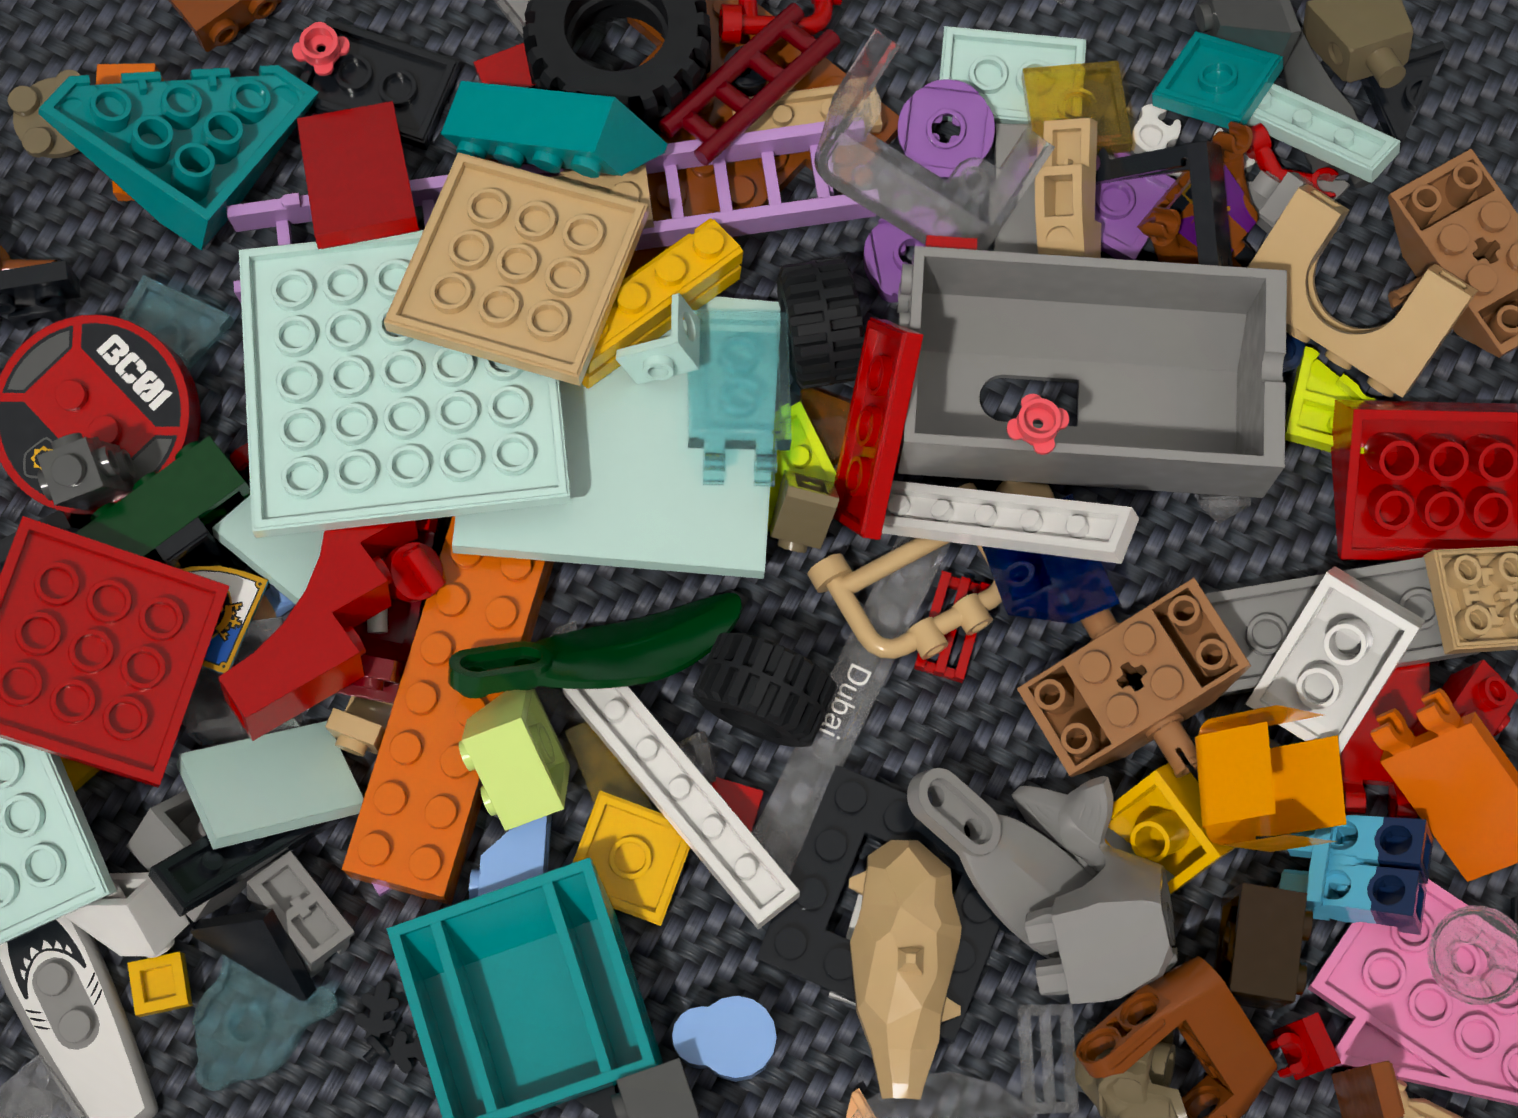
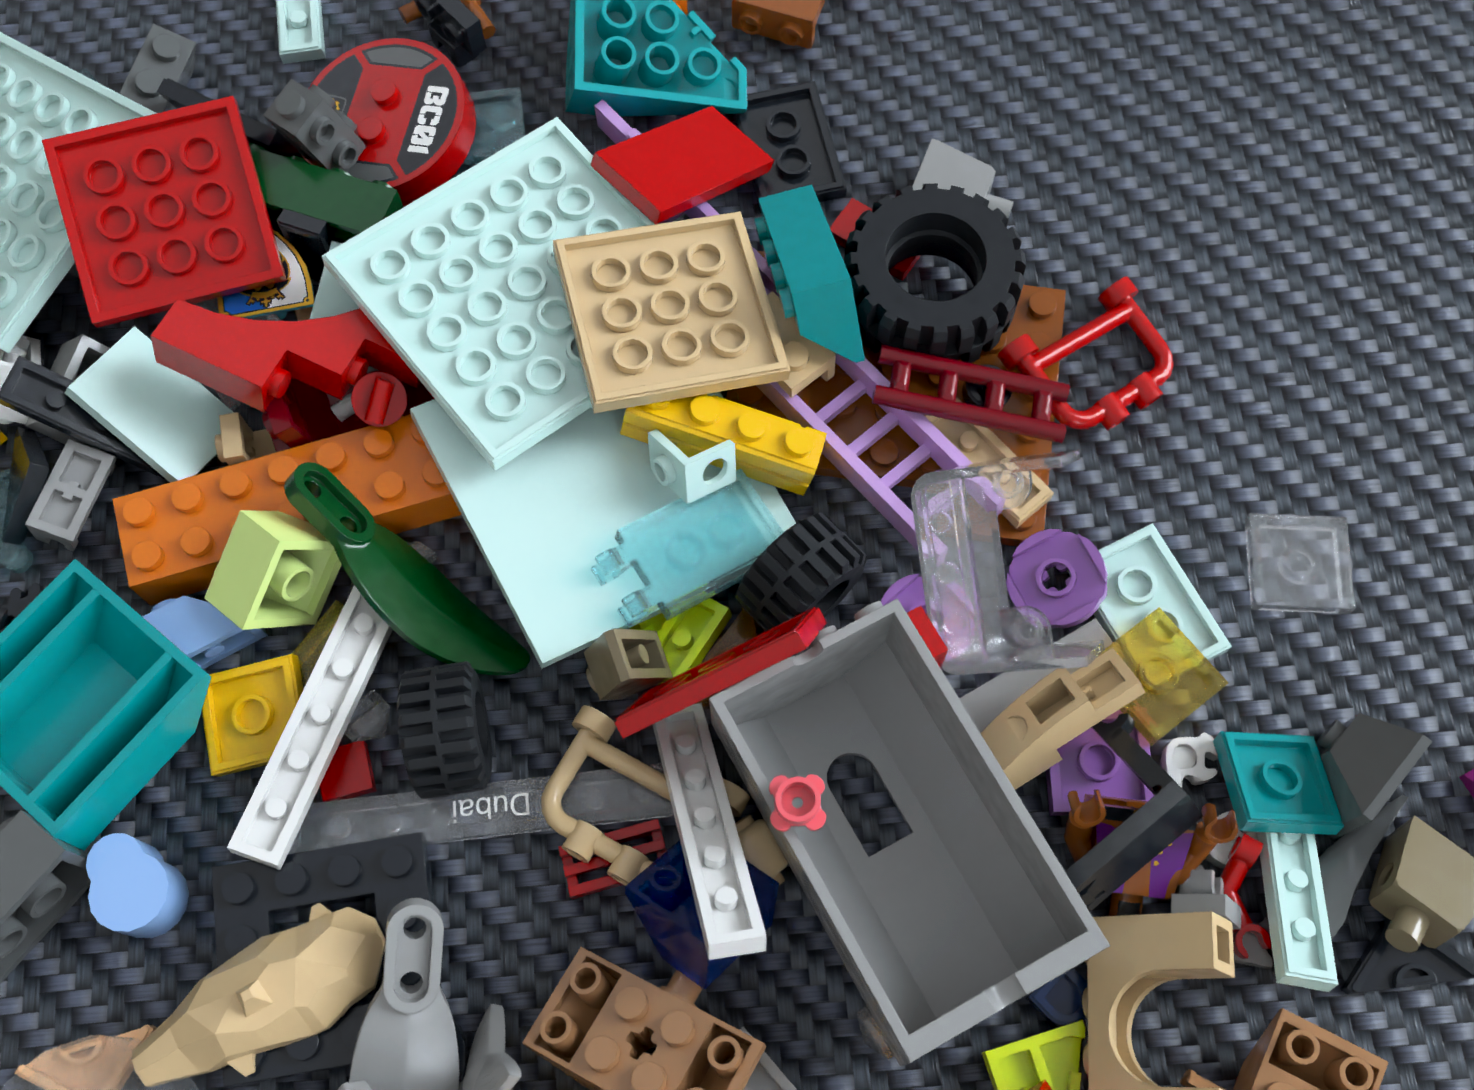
camera: 60 degrees right, 5 degrees down
(320, 35) = (782, 78): coral plate -> none

